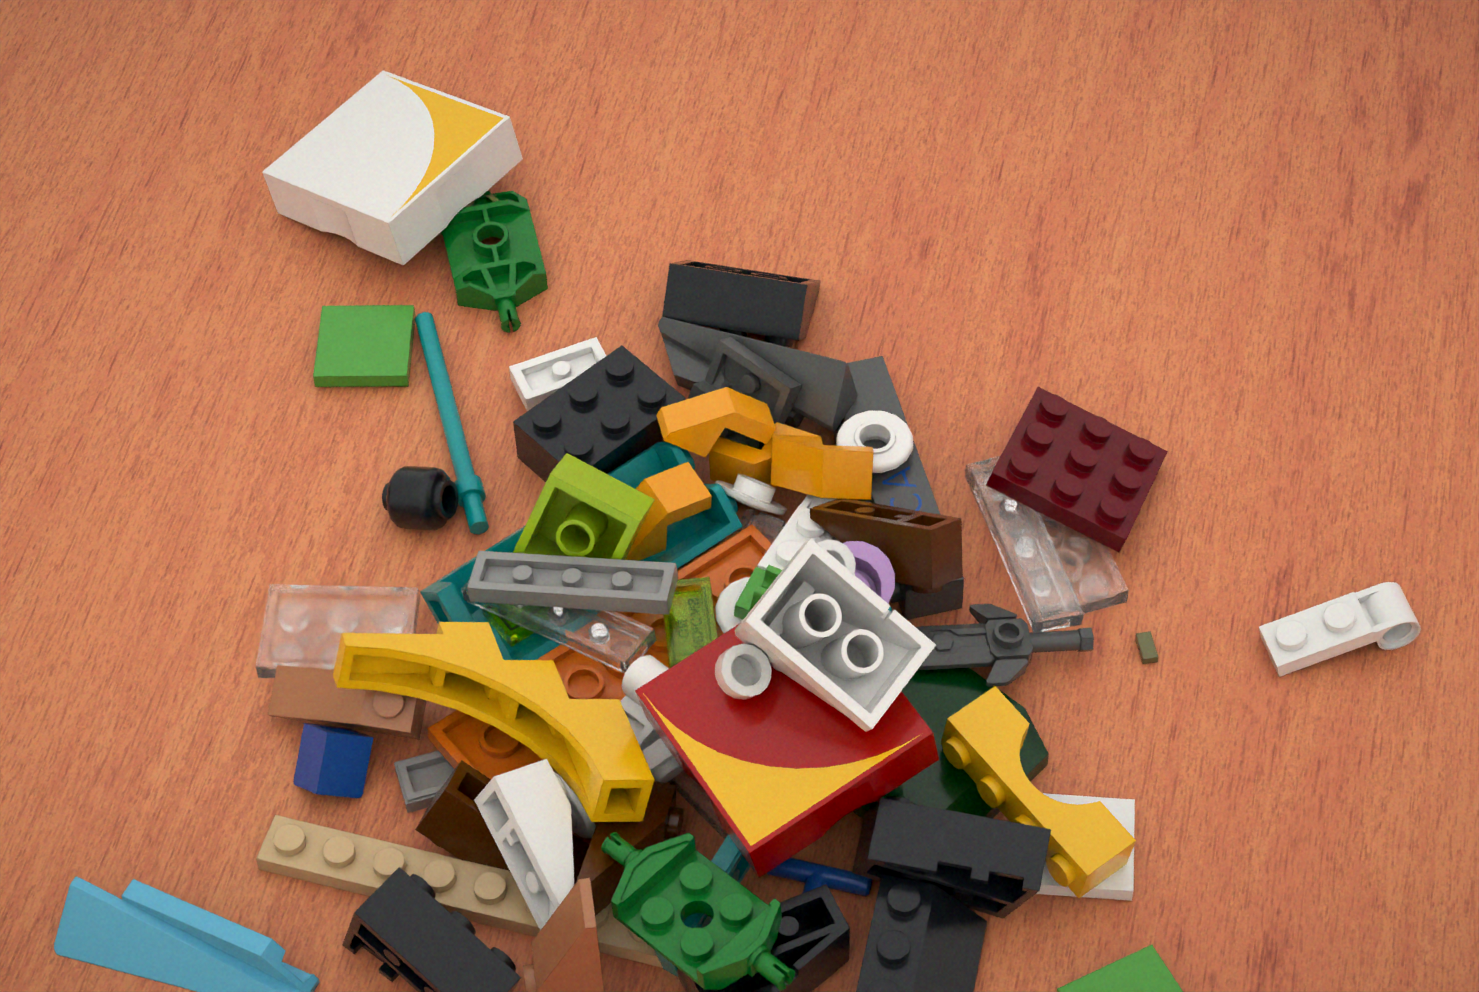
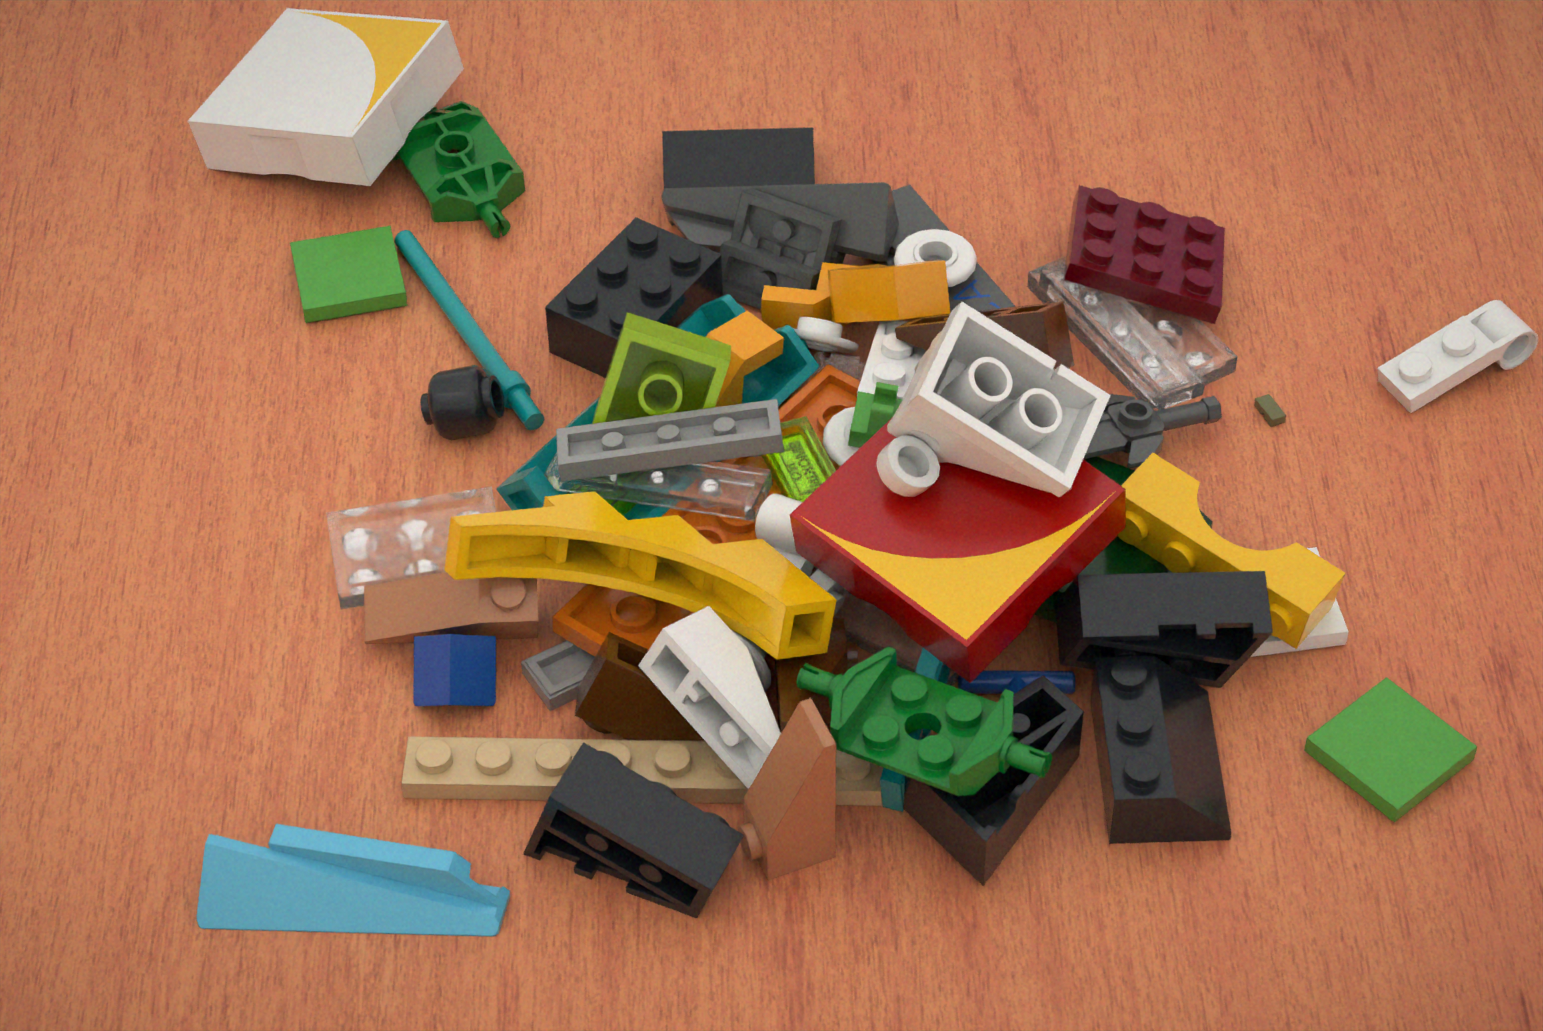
camera: 15 degrees left, 5 degrees down
(548, 373) = (557, 265): white plate -> none
(701, 420) = (751, 267): light orange slope -> none

